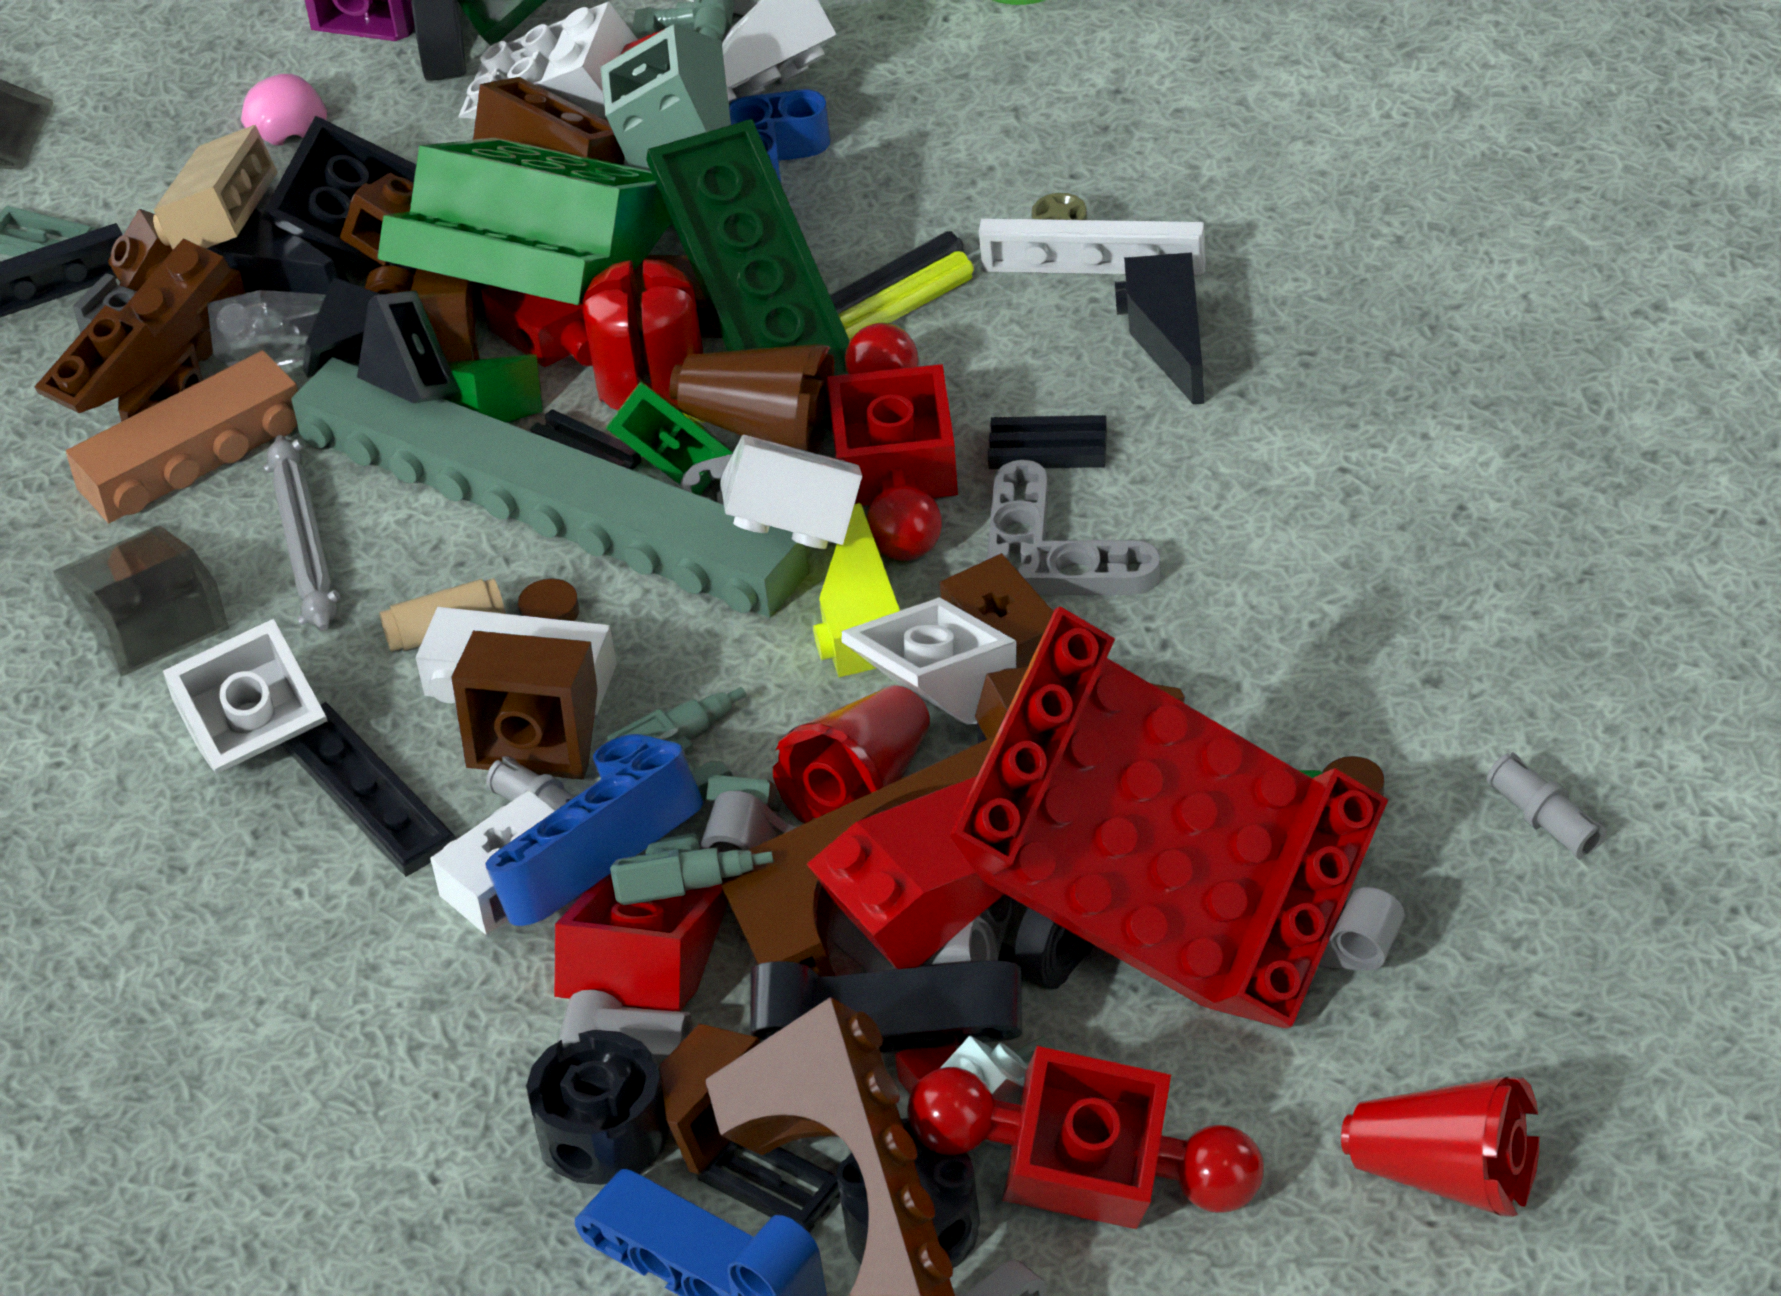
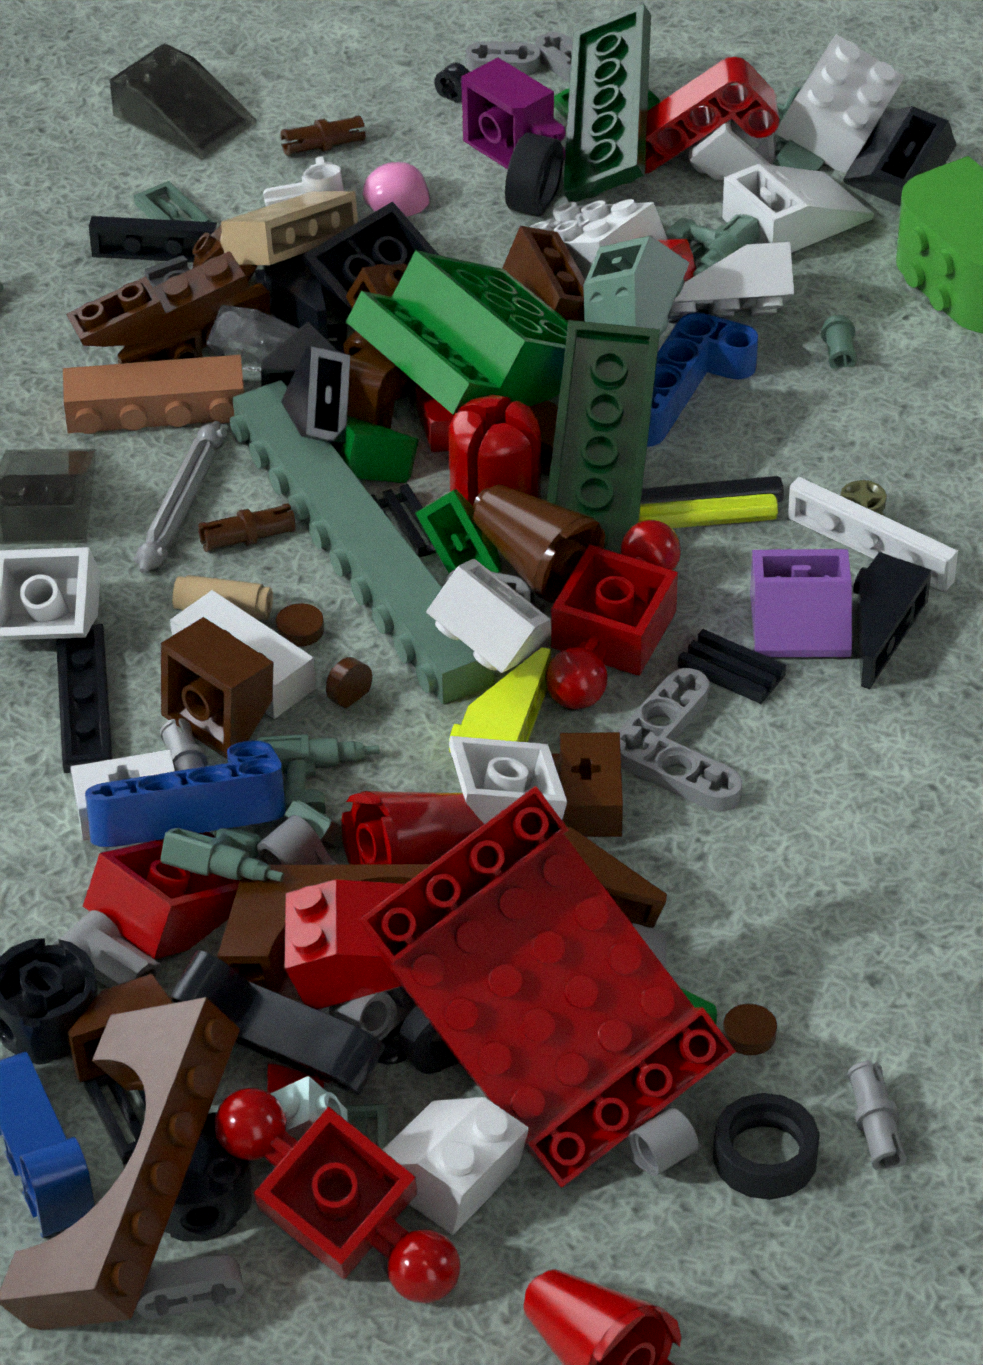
camera: 25 degrees right, 0 degrees up
(149, 85) = (322, 135): none -> reddish brown pin
(186, 133) = (318, 177): none -> white axle
(407, 531) = (246, 527): none -> reddish brown pin
(656, 637) = (348, 681): none -> reddish brown tile
(894, 62) = (839, 335): none -> sand green pin
(1079, 344) = (801, 602): none -> medium lavender slope
(1169, 1027) = (458, 1156): none -> white slope
(1462, 923) = (758, 1179): none -> black tyre

